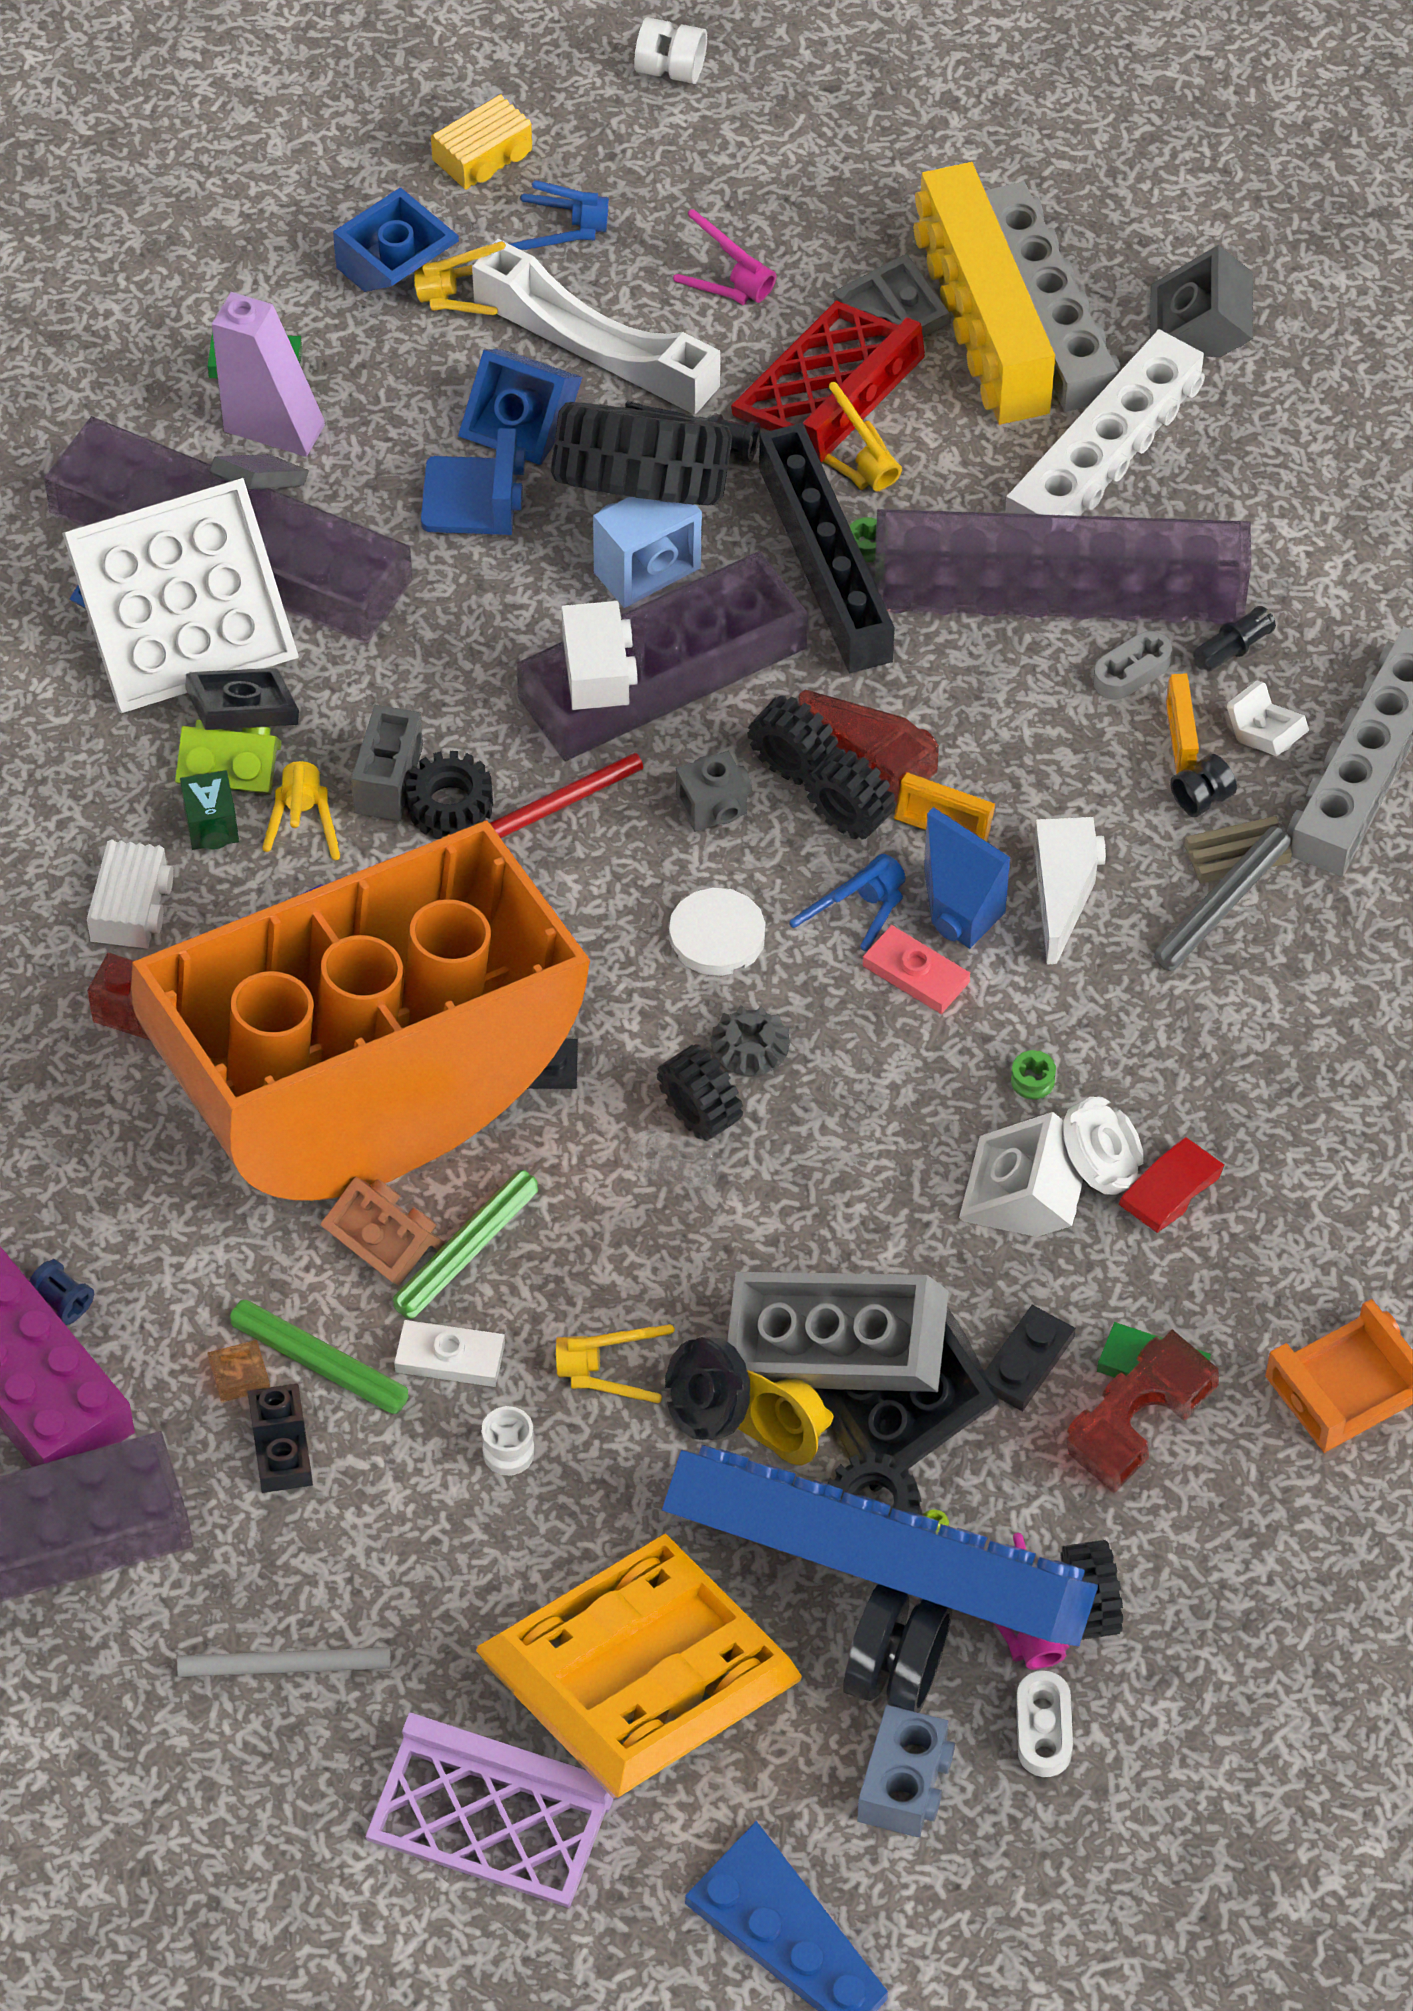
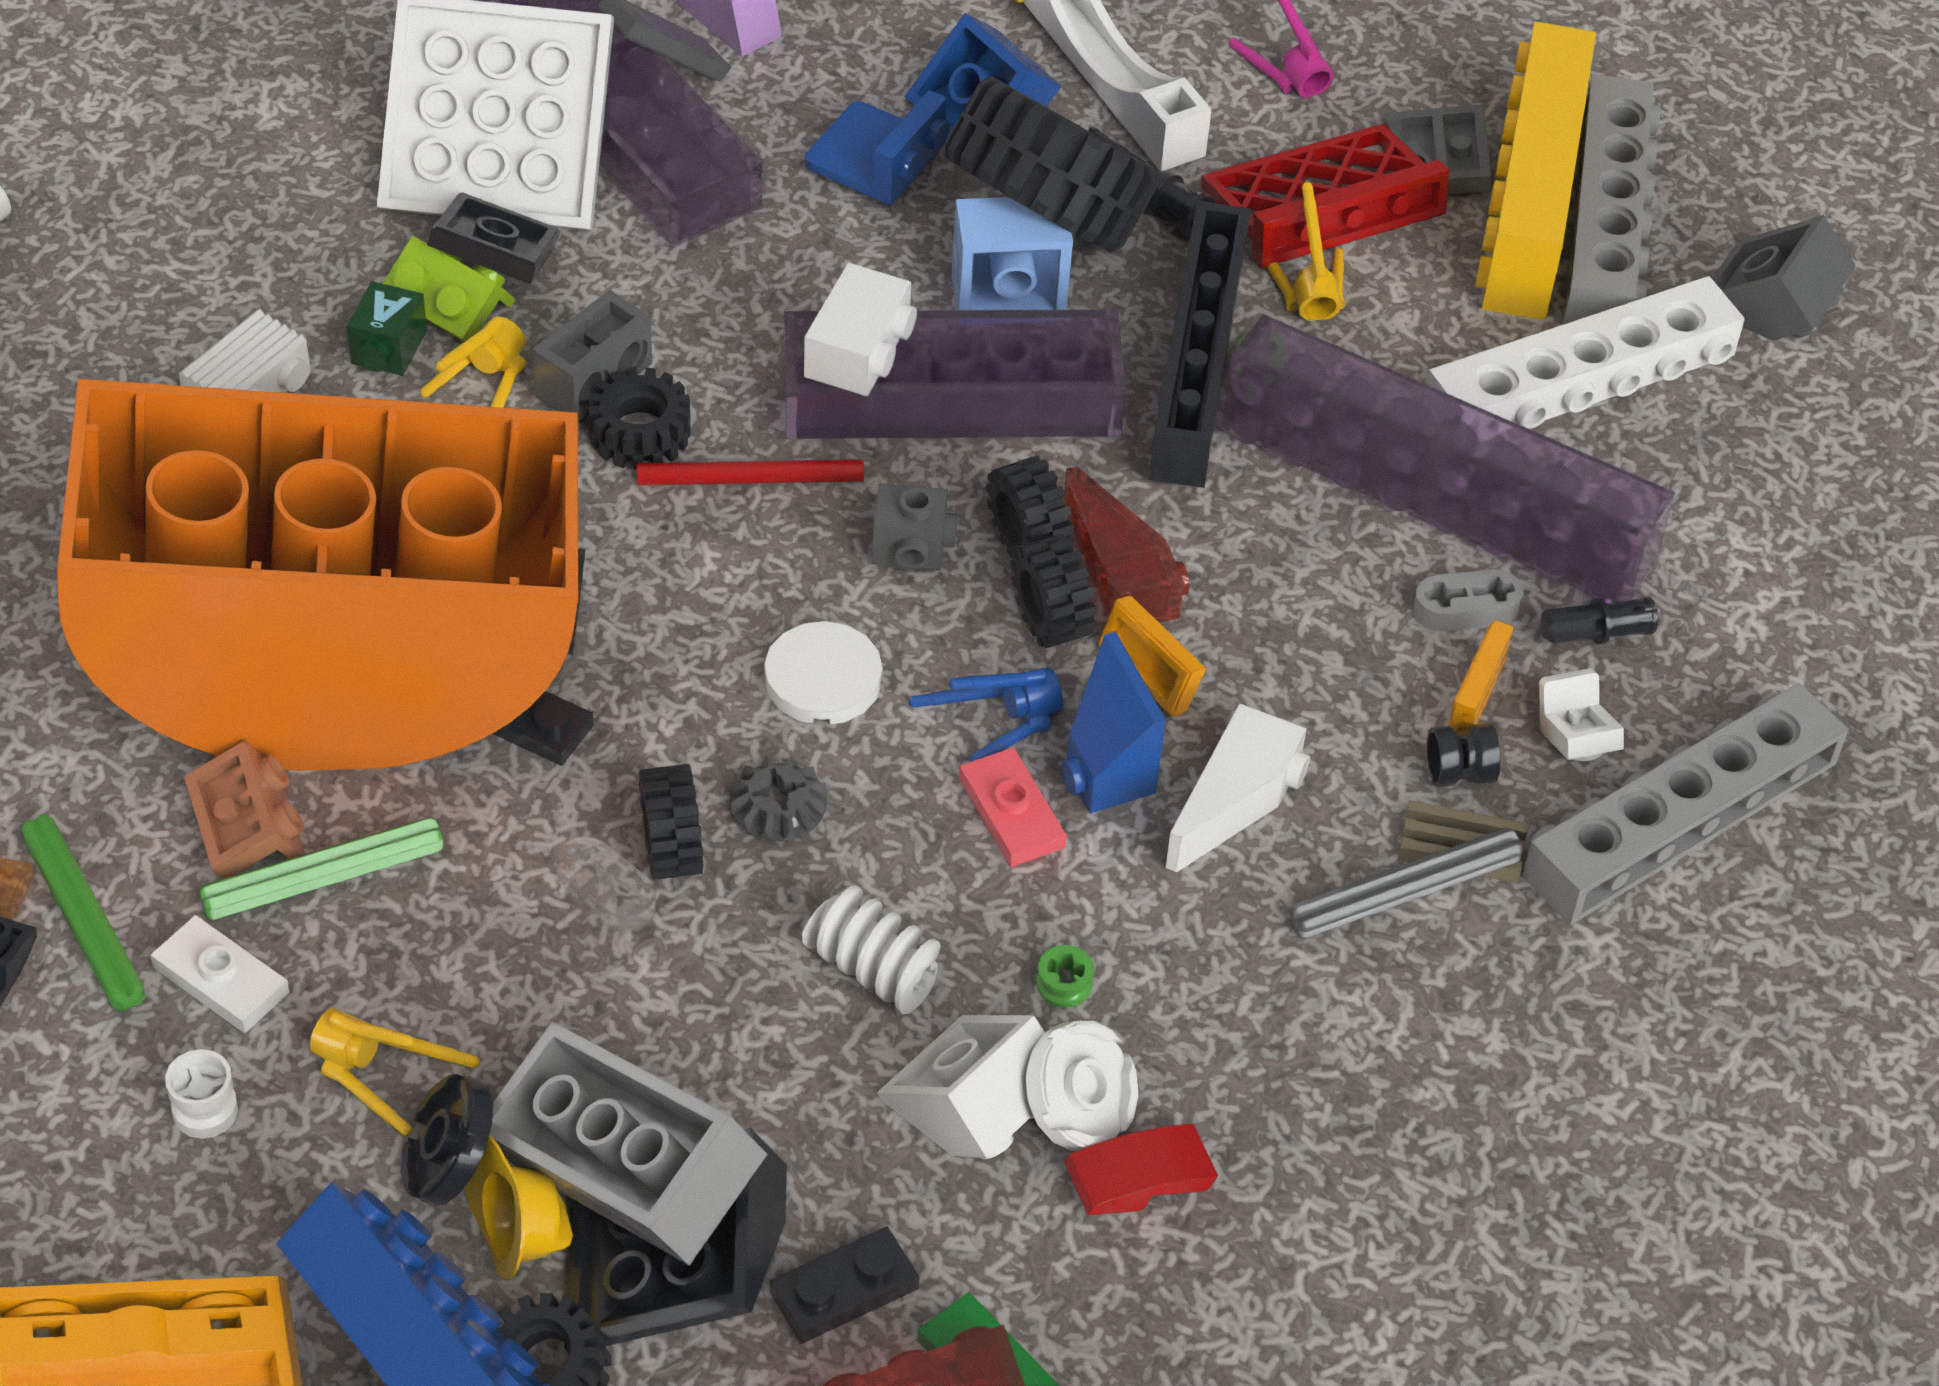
camera: 25 degrees right, 5 degrees down
(897, 1115) = (874, 949): none -> white piece

